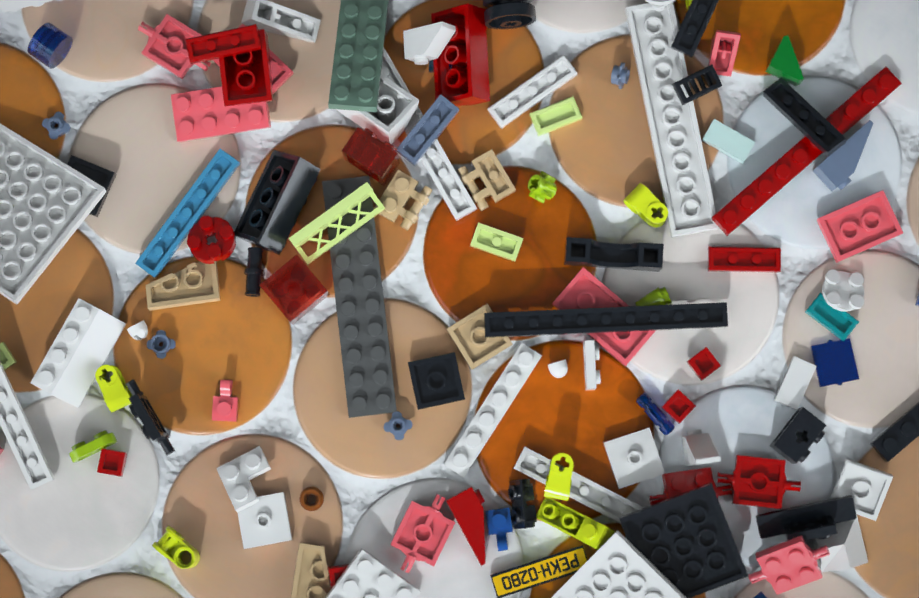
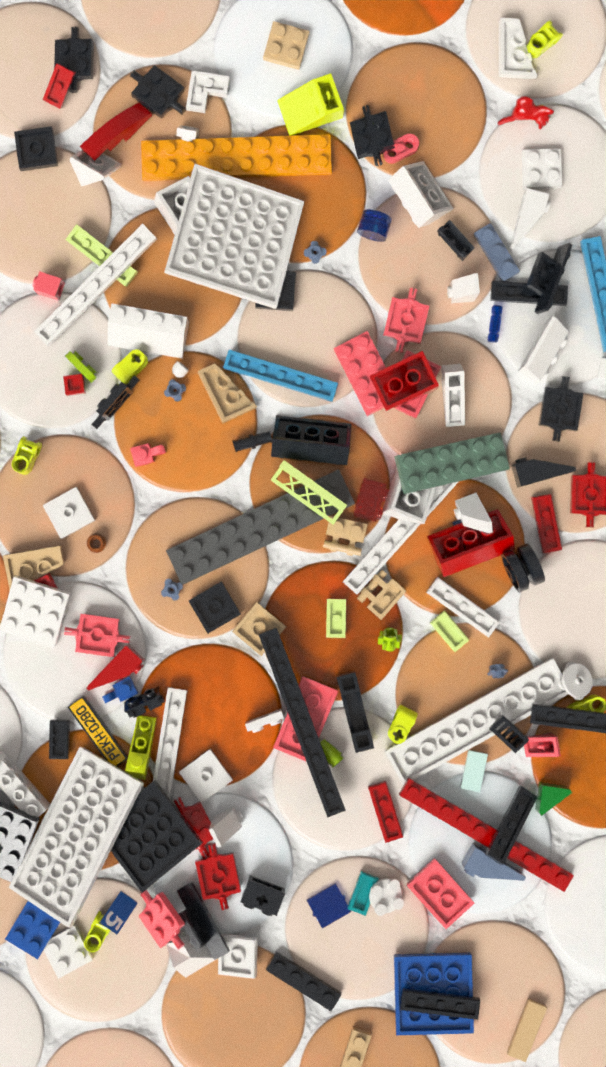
camera: 70 degrees right, 5 degrees up
(208, 227) = (257, 407): red plate -> none
(223, 44) = (416, 358): red tile -> none
(237, 477) = (95, 481): white plate -> none
(294, 289) = (247, 477): clear red brick -> none
(427, 130) = (404, 537): sand blue plate -> none
(492, 410) = (207, 657): white plate -> none
(558, 368) = (254, 696): white hinge -> none
(559, 482) = (168, 725): neon yellow piece -> none
(655, 414) = (244, 781): clear blue axle -> none
(678, 406) = (255, 797): red plate -> none
(703, 363) = (294, 806): red plate -> none
(795, 383) = (303, 880): white tile -> none

